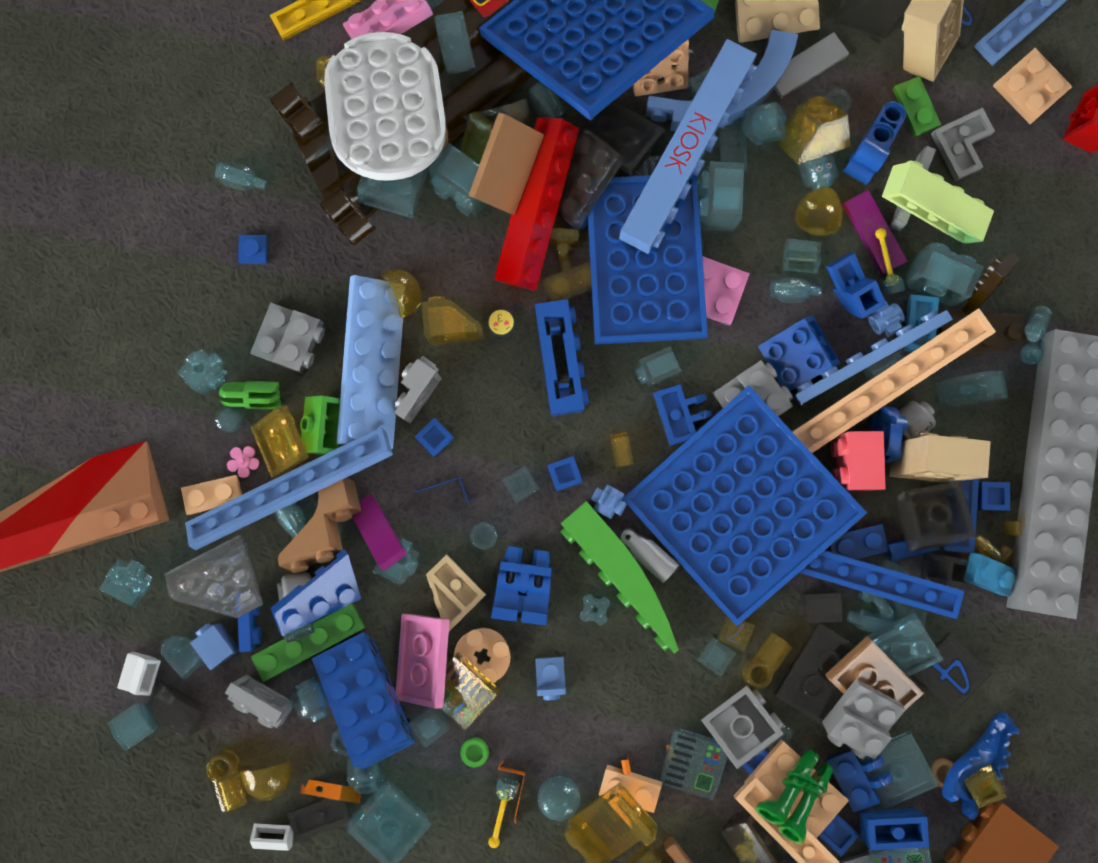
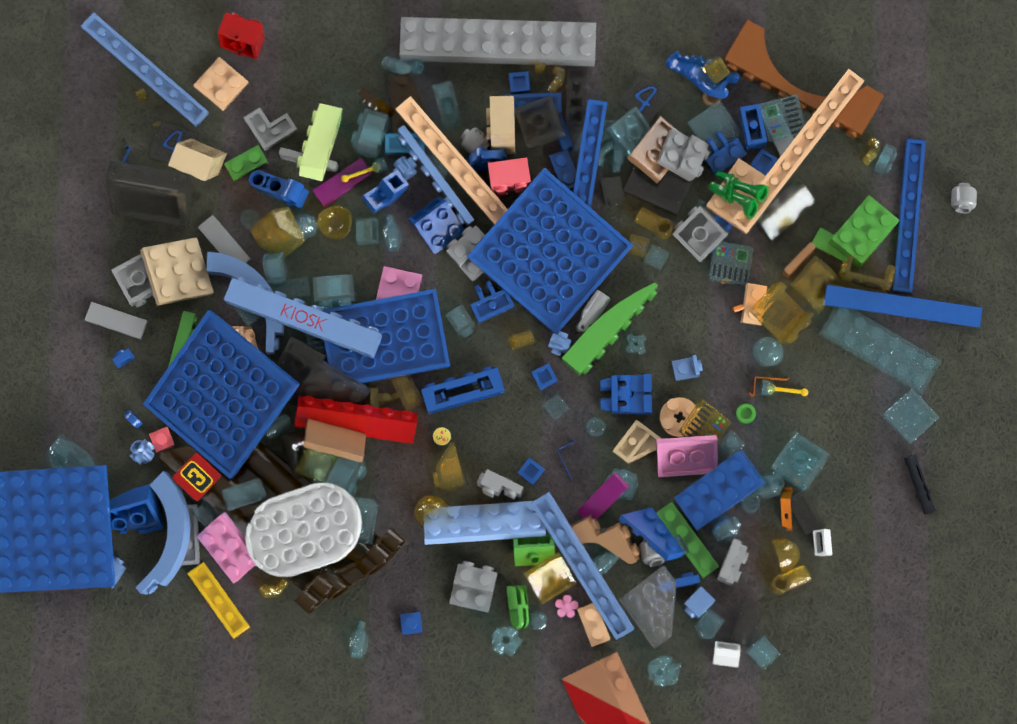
camera: 95 degrees left, 5 degrees down
(990, 574) = (574, 81): dark azure plate -> none

